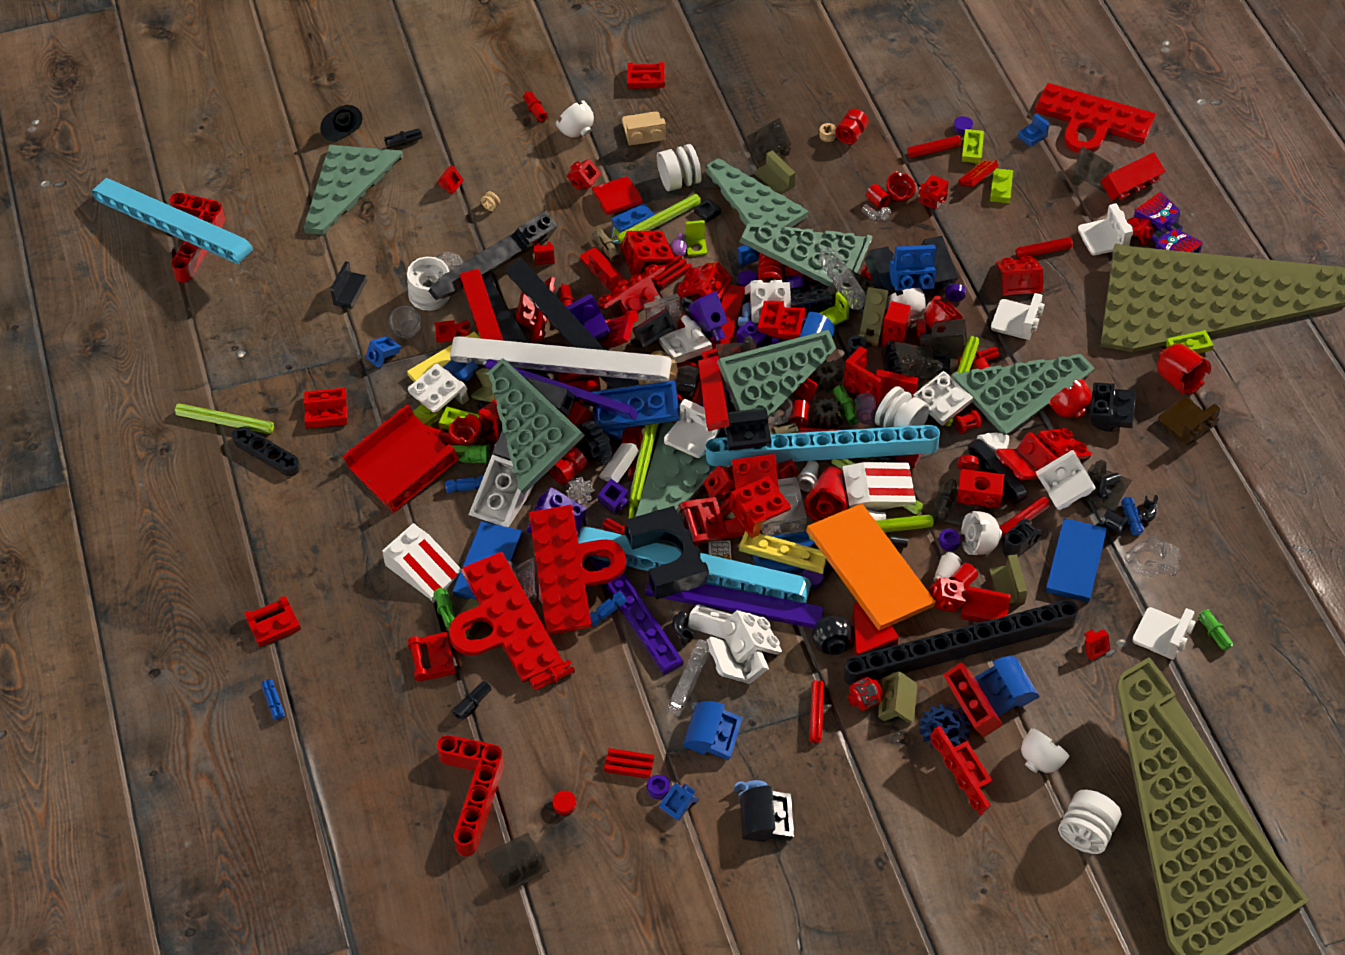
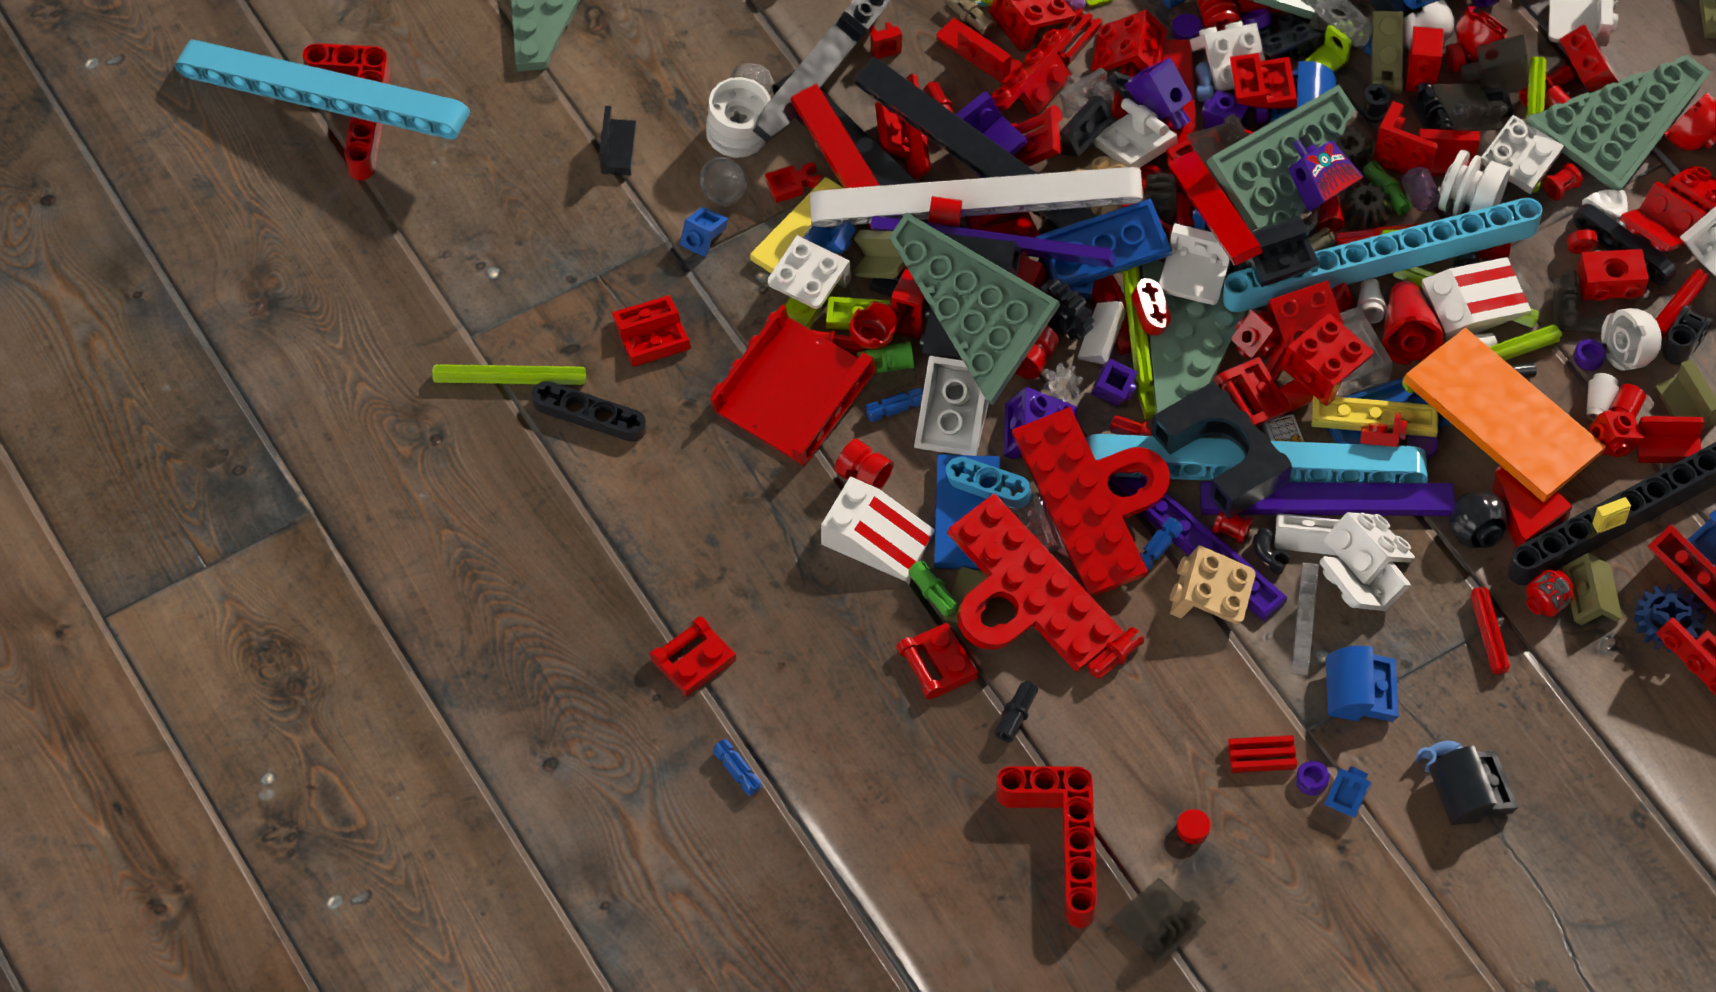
camera: 15 degrees left, 5 degrees up
(427, 518) = (860, 463): none -> red wheel
(501, 537) = (979, 472): none -> dark azure beam
(533, 363) = (945, 211): none -> red beam
(633, 643) = (1213, 585): none -> tan bracket
(650, 450) = (1147, 307): none -> red beam
(663, 607) = (1235, 527): none -> red bush
(779, 563) = (1379, 435): none -> red bracket
(796, 383) = (1321, 172): none -> torso
(921, 647) = (1611, 515): none -> light yellow tile
(1010, 344) = (1588, 59): none -> red brick

